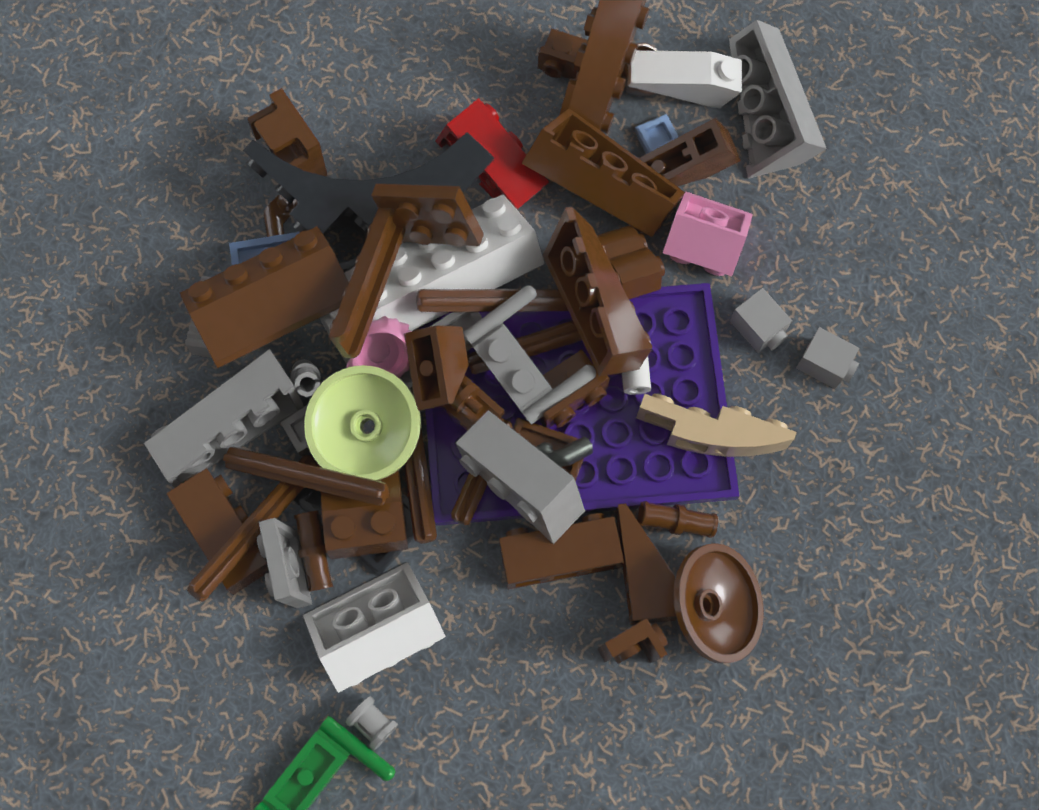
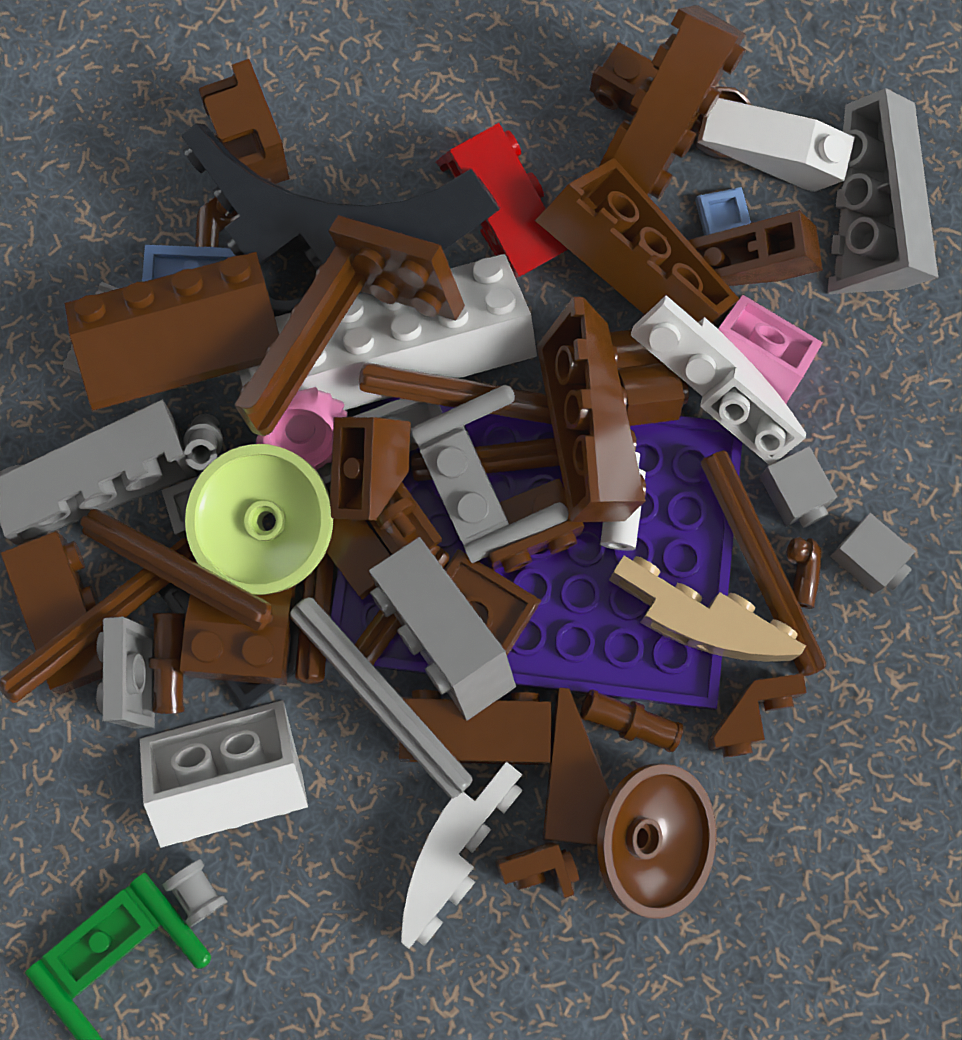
camera: 10 degrees right, 5 degrees up
(440, 433) = (355, 551): none -> reddish brown slope
(484, 539) = (381, 697): none -> light grey axle
(559, 662) = (440, 869): none -> white slope
(569, 453) = (505, 612): pearl dark grey arm -> none
(687, 249) = (723, 376): none -> white slope
(745, 376) = (761, 557): none -> reddish brown axle
(762, 502) = (743, 721): none -> reddish brown slope
(782, 381) = (807, 576): none -> reddish brown arm

